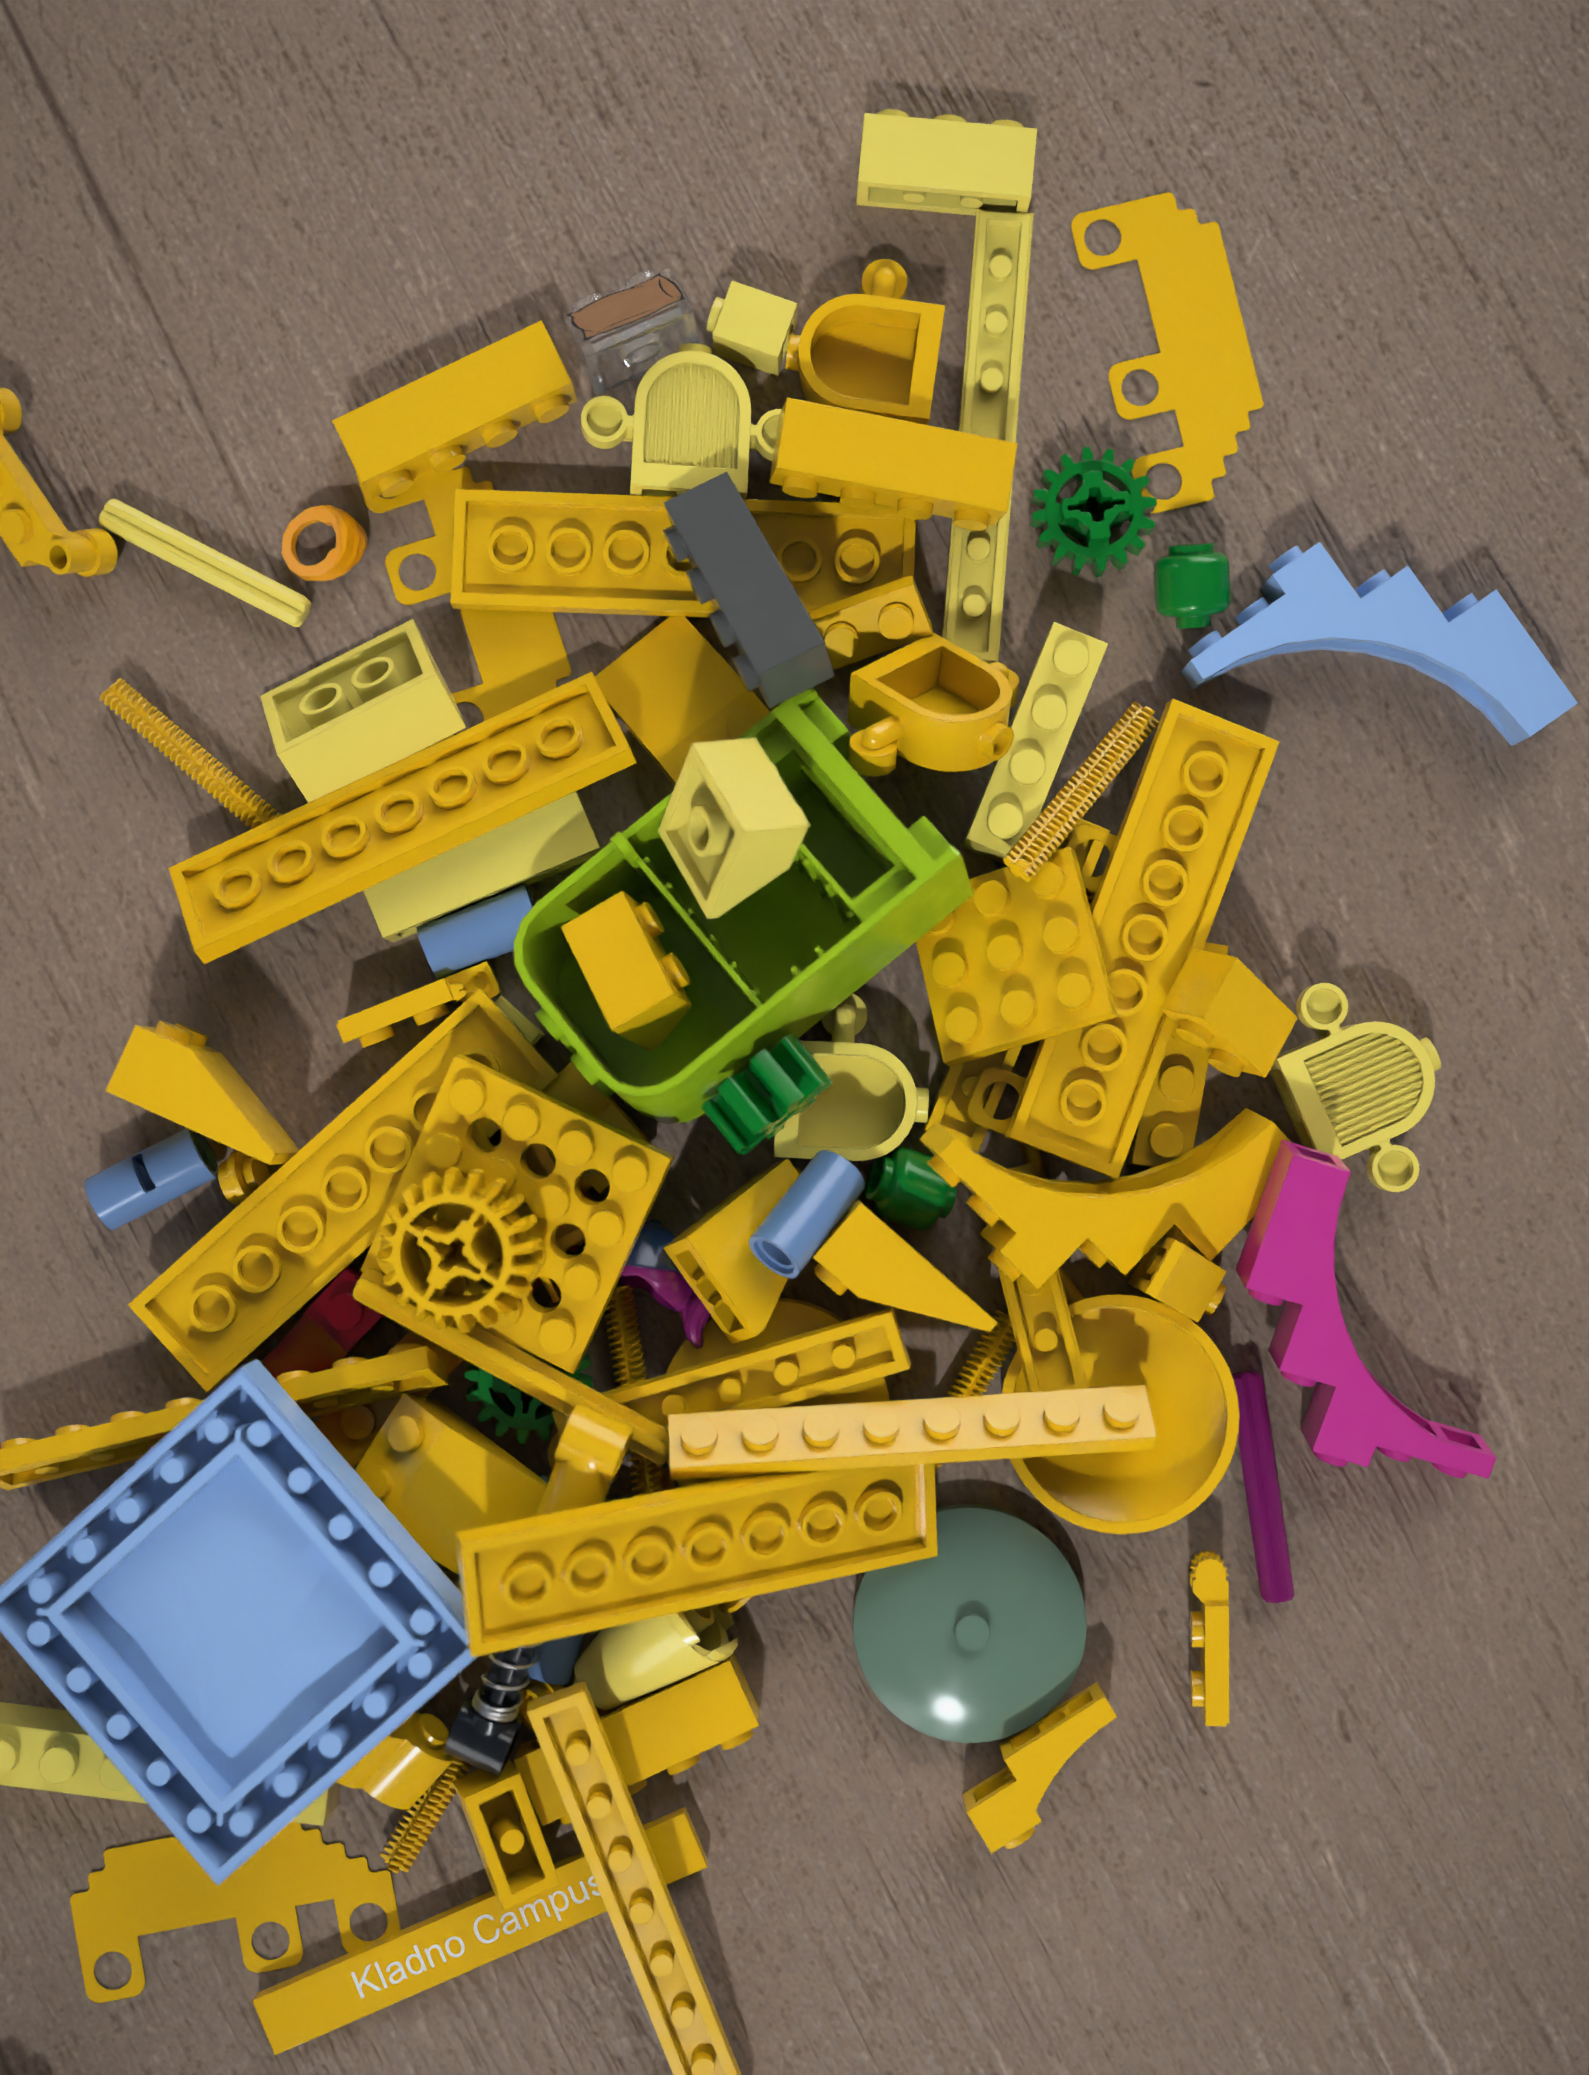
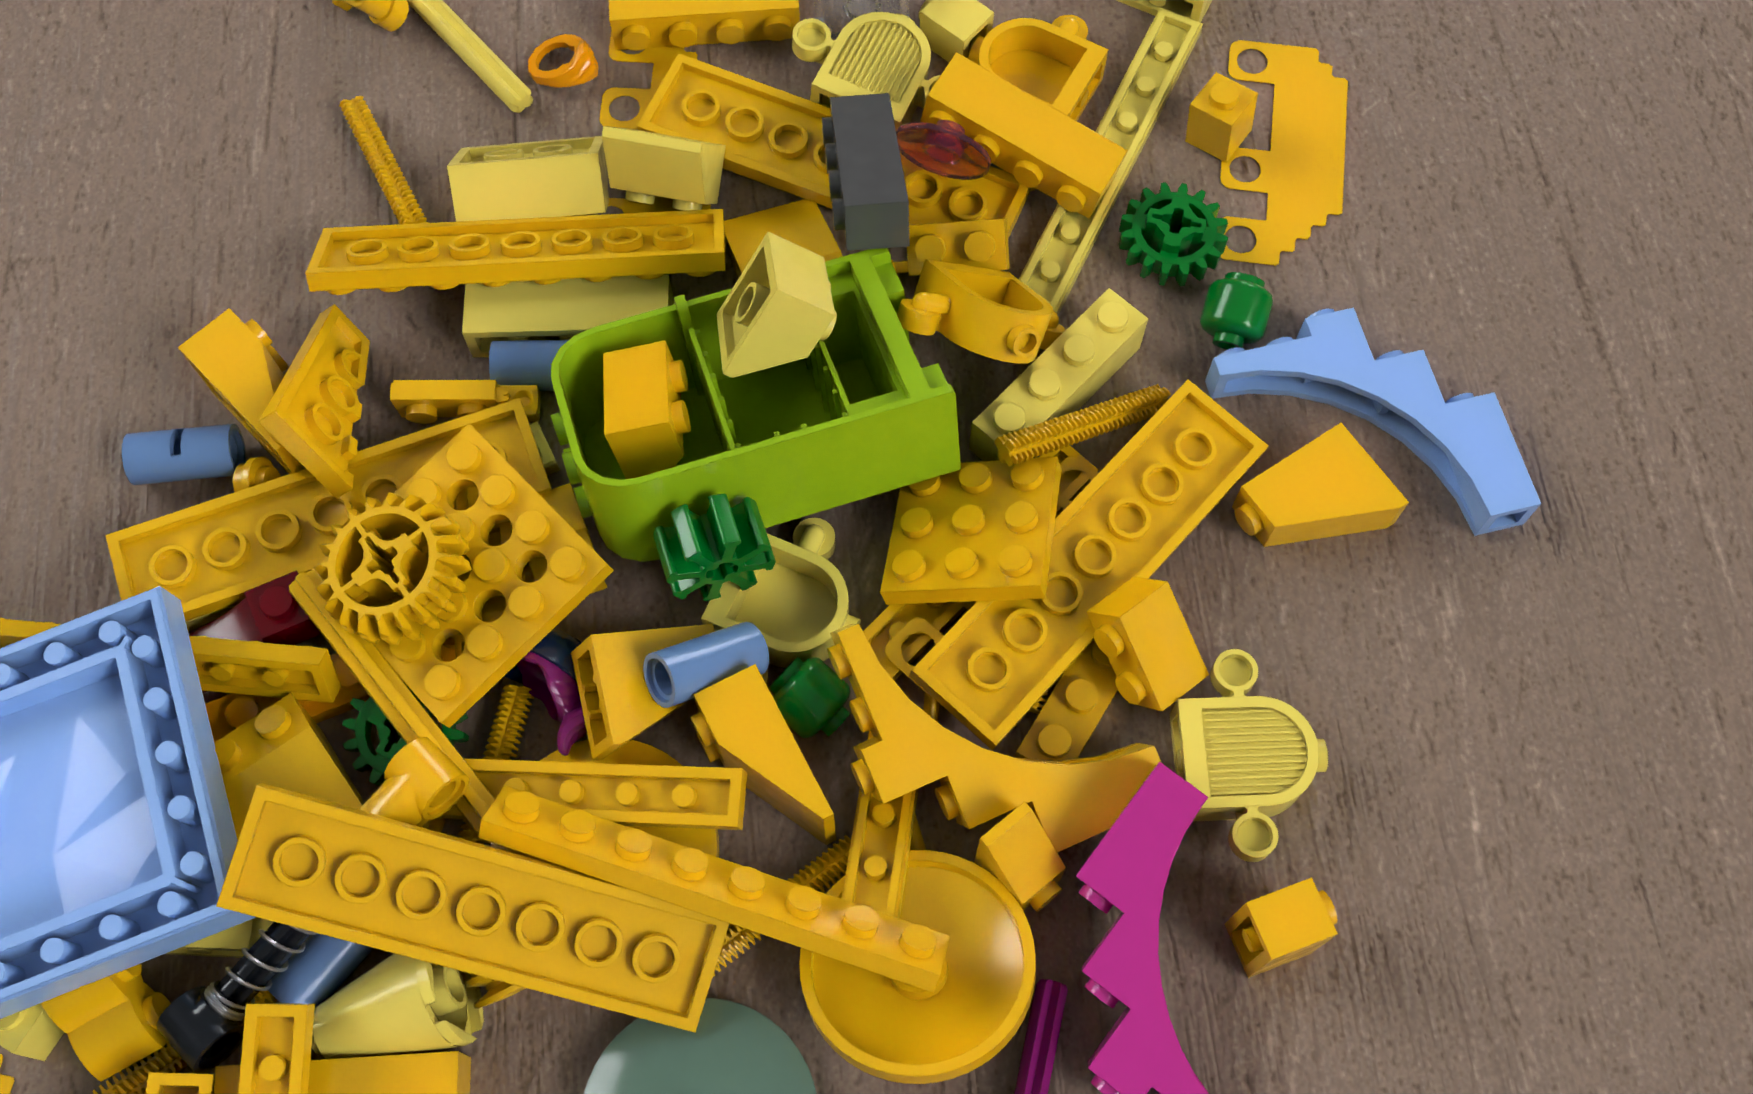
camera: 20 degrees right, 20 degrees down
(277, 1077) = (319, 400): none -> yellow wing
(508, 647) = (663, 167): none -> light yellow slope
(815, 518) = (943, 149): none -> dish
(1097, 341) = (1221, 117): none -> yellow brick
(1341, 766) = (1319, 493): none -> yellow slope
(1449, 1251) = (1282, 926): none -> yellow brick

